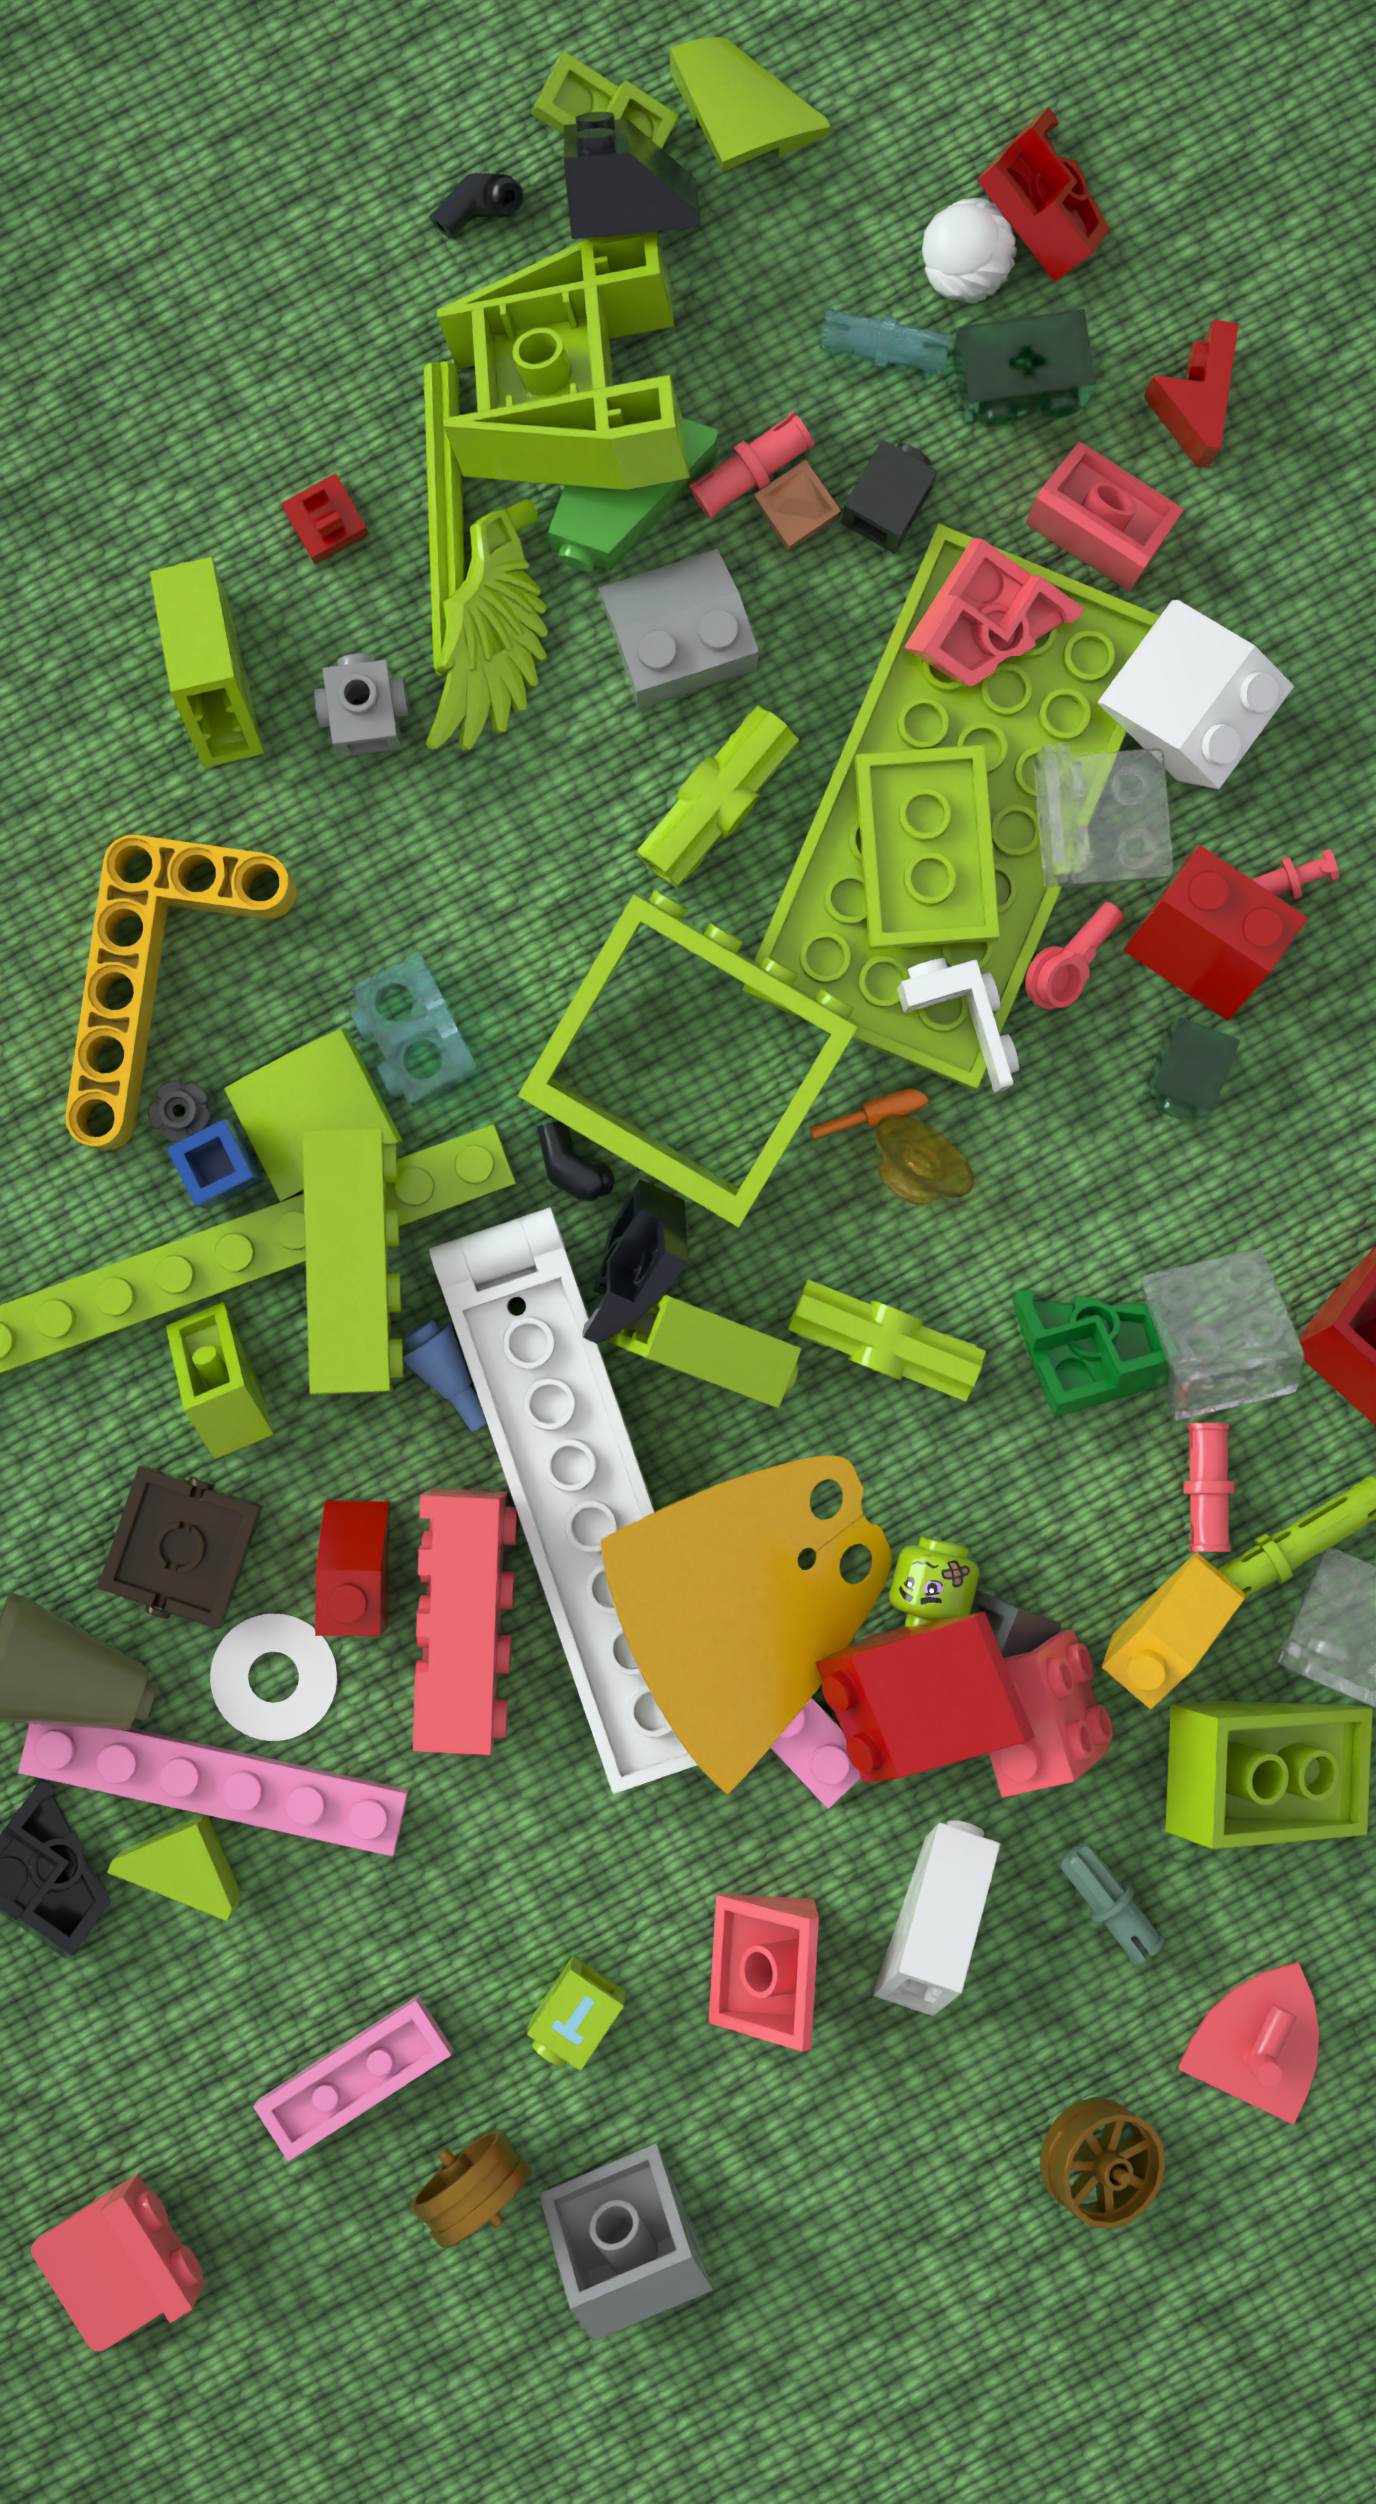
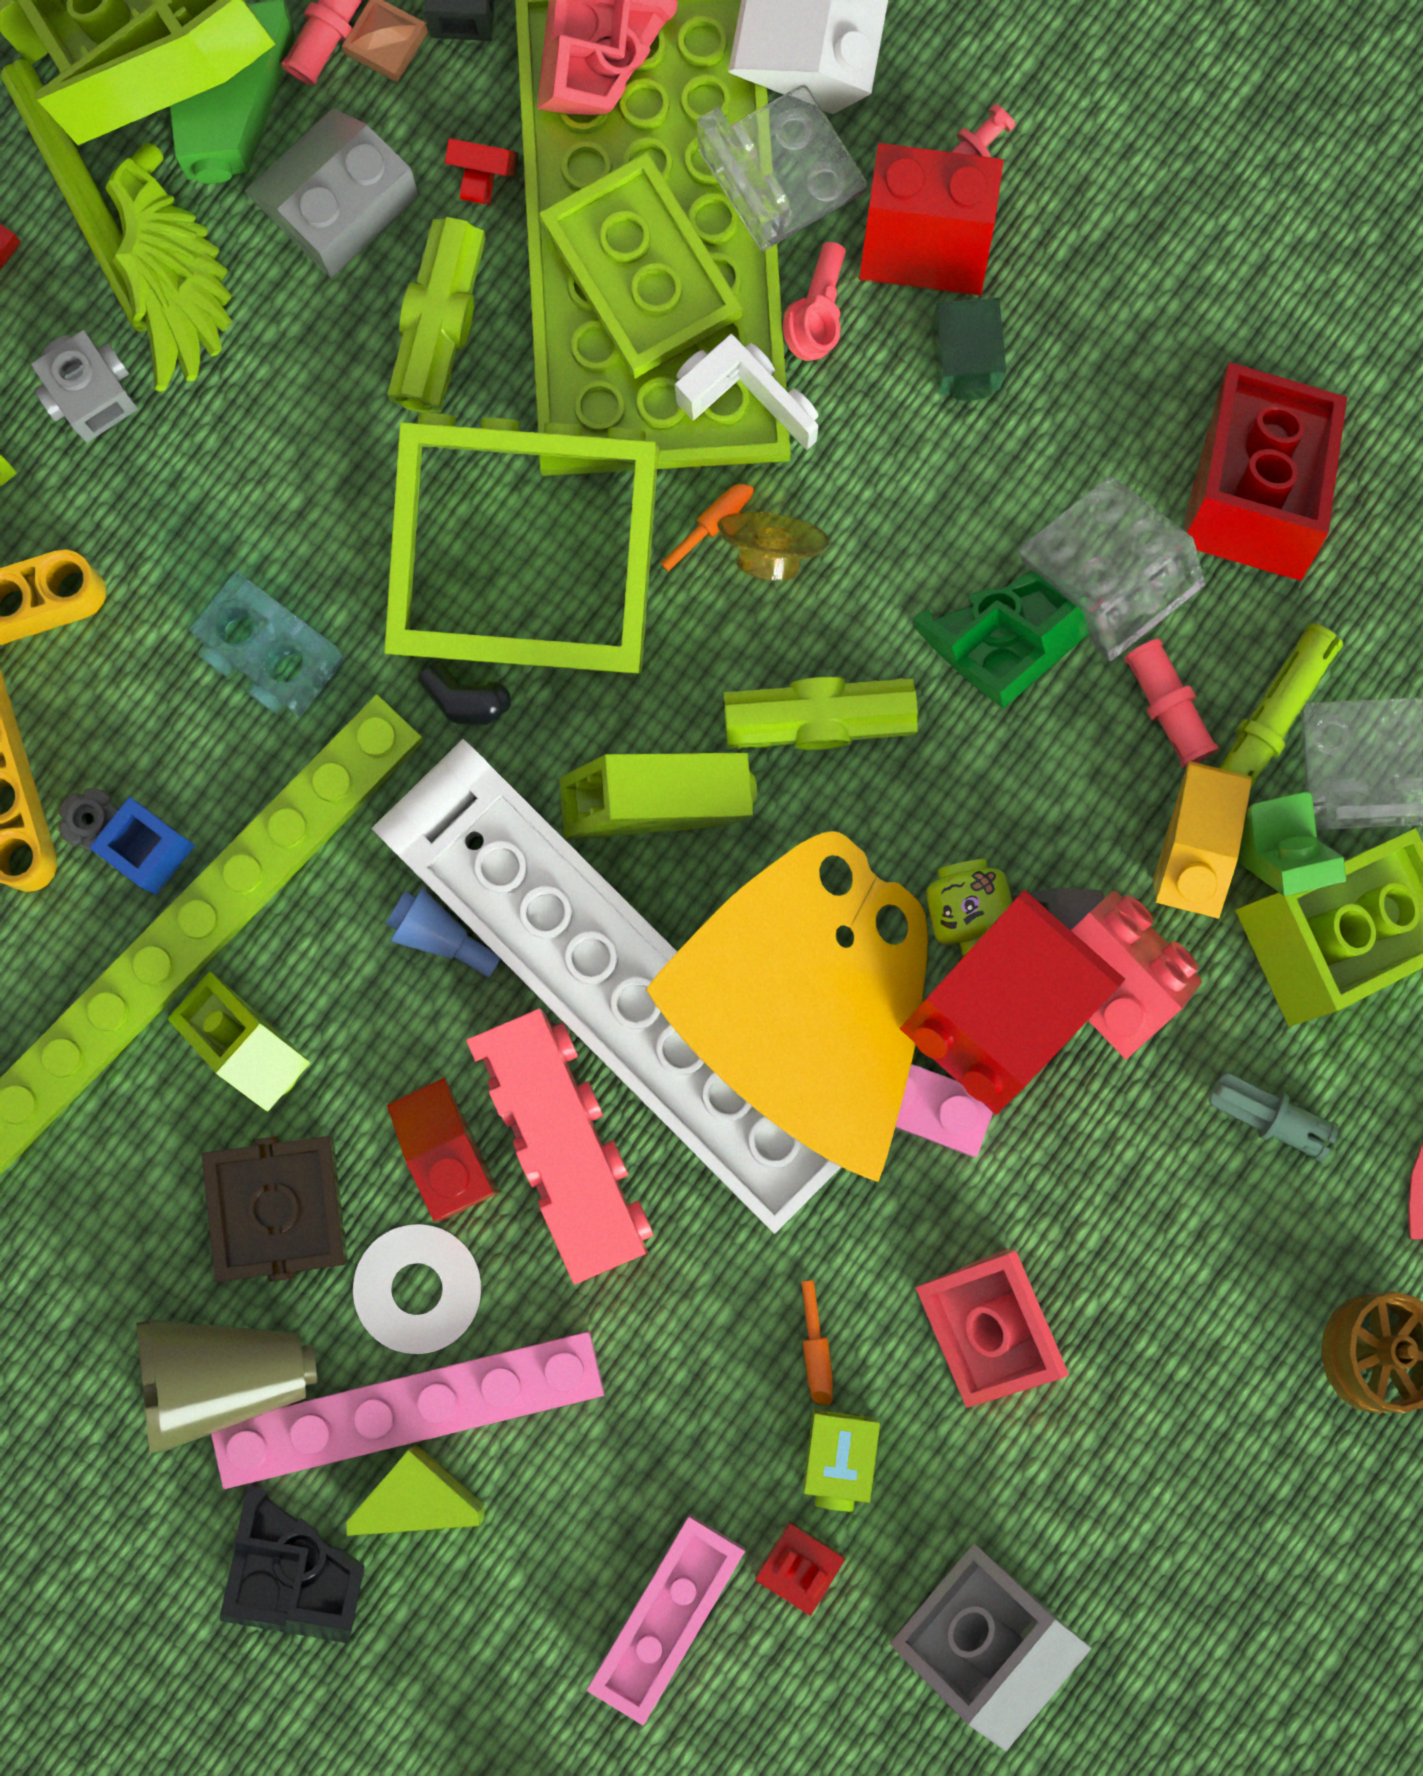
camera: 20 degrees left, 5 degrees down
(306, 1090) = (210, 763): lime slope -> none
(348, 1261) = (303, 872): lime wedge -> none
(470, 2188) = (823, 1663): pearl gold wheel -> none
(492, 2090) = (800, 1568): none -> red tile
(601, 1907) = (816, 1350): none -> orange piece
(640, 1260) = (563, 745): black slope -> none
(827, 673) = (480, 166): none -> red tile
(939, 1919) = (1126, 1206): white slope -> none
(1241, 1680) = (1283, 846): none -> bright green slope

